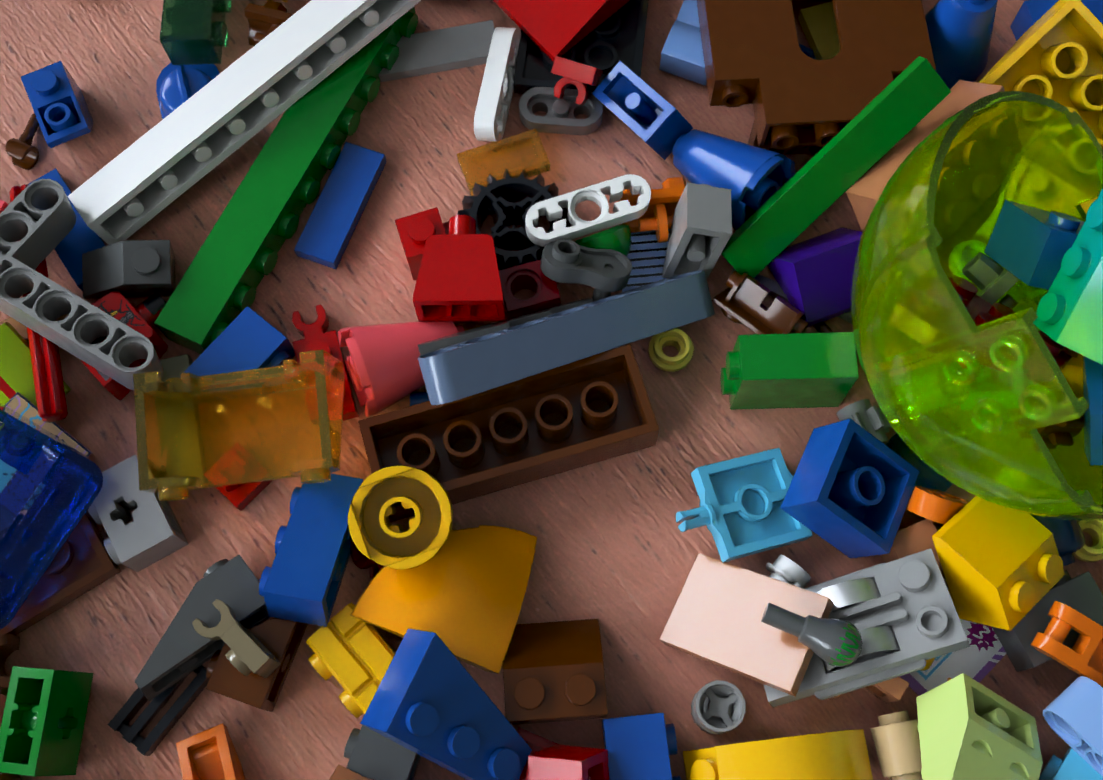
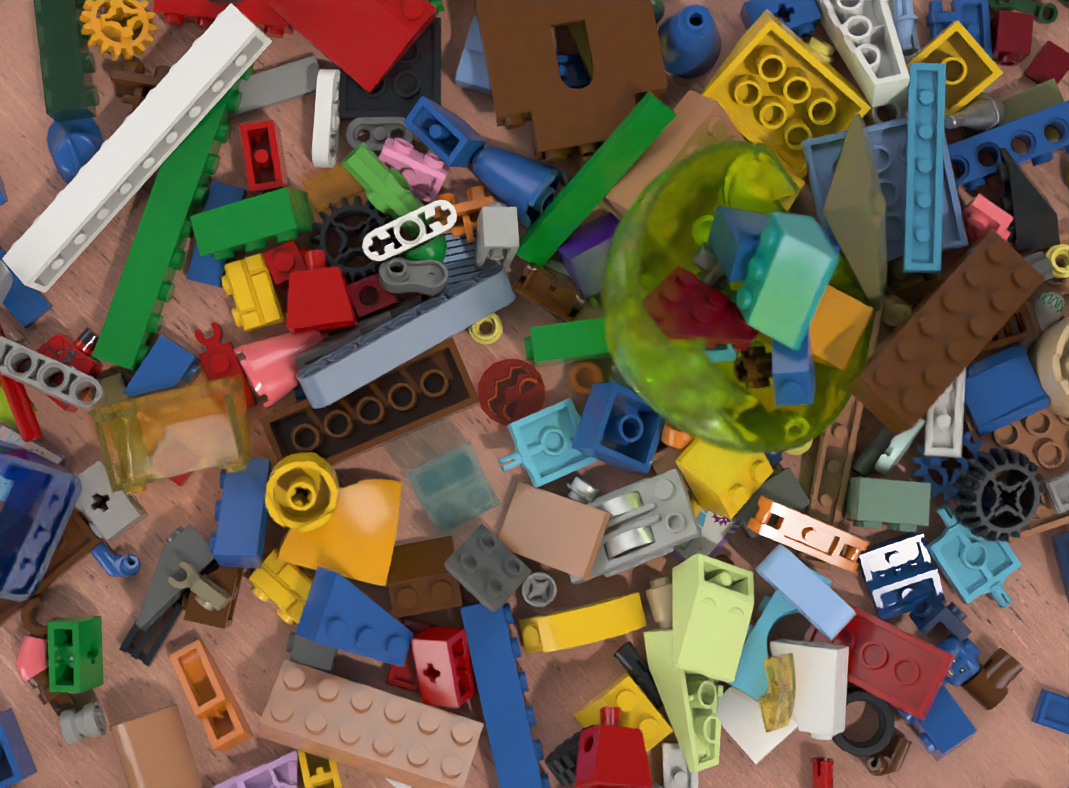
camera: 10 degrees left, 15 degrees up
(129, 605) = (116, 564): none -> blue arm
(131, 268) = (62, 314): dark grey slope -> none
(376, 274) = (254, 294): none -> yellow brick
(387, 183) = (253, 223): none -> green wedge
(414, 119) = (263, 157): none -> red brick
(558, 156) = (384, 186): none -> bright green piece
(575, 74) = (388, 108): red tile -> none
(592, 147) = (421, 170): none -> bright pink bracket
(610, 548) = (453, 488): none -> clear light blue slope
(650, 663) = (487, 568): none -> dark grey bracket
(697, 432) = (511, 391): none -> clear red tile
(797, 426) = (583, 377): none -> orange tile
(830, 639) = (606, 541): dark grey piece -> none

